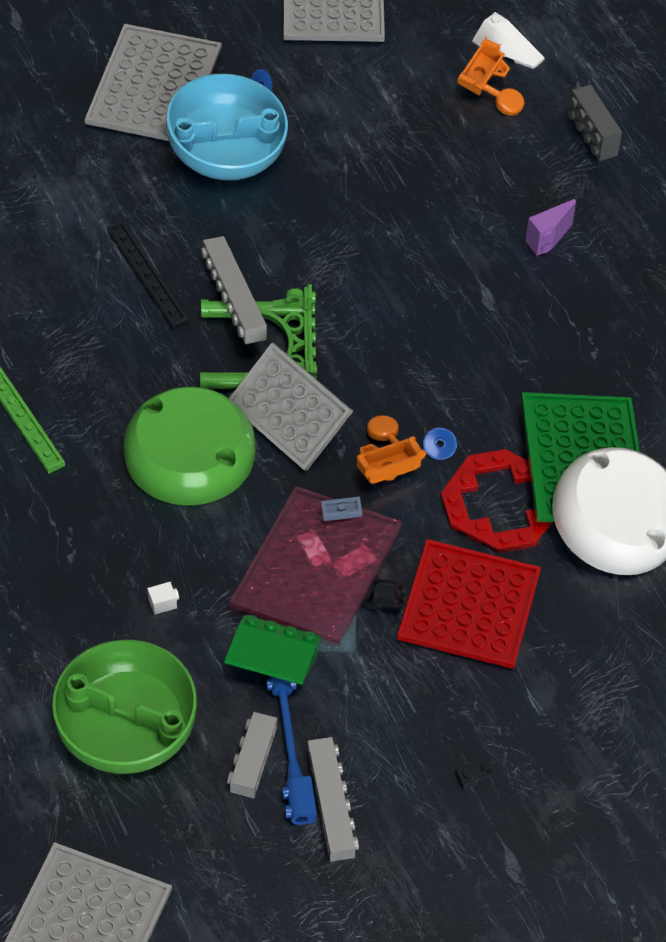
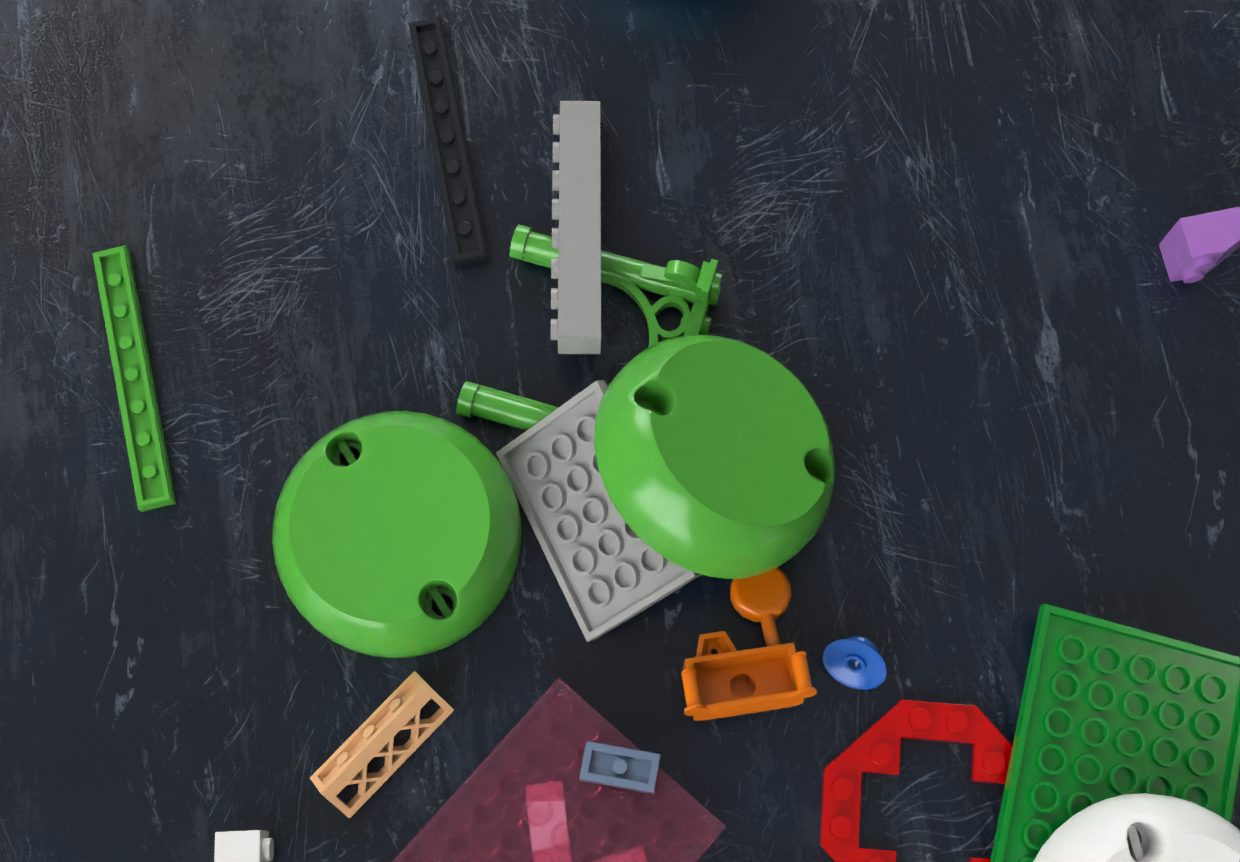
camera: 25 degrees right, 20 degrees up
(210, 535) = (370, 742): none -> light nougat fence
(342, 360) = (715, 455): none -> bright green cylinder

